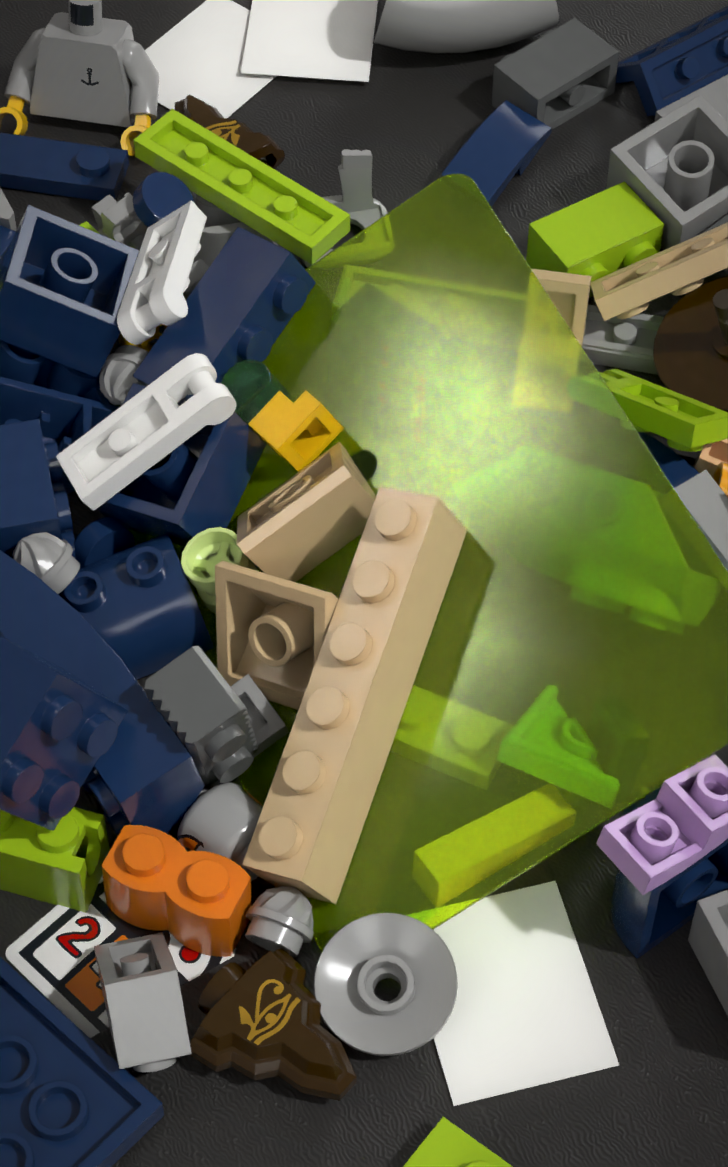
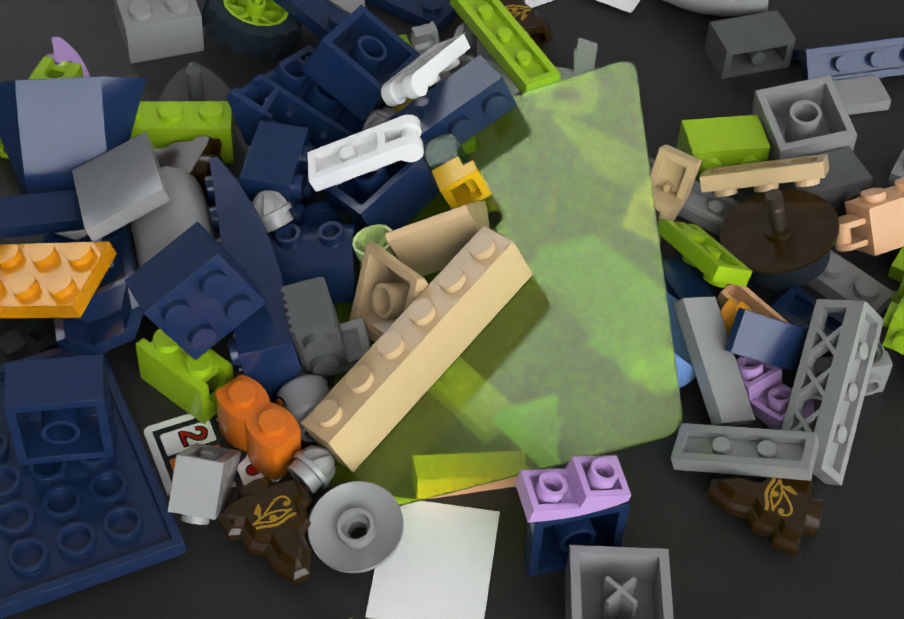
camera: 20 degrees right, 5 degrees down
(159, 196) = (449, 26): dark blue tile -> none
(499, 149) = (687, 74): dark blue slope -> none

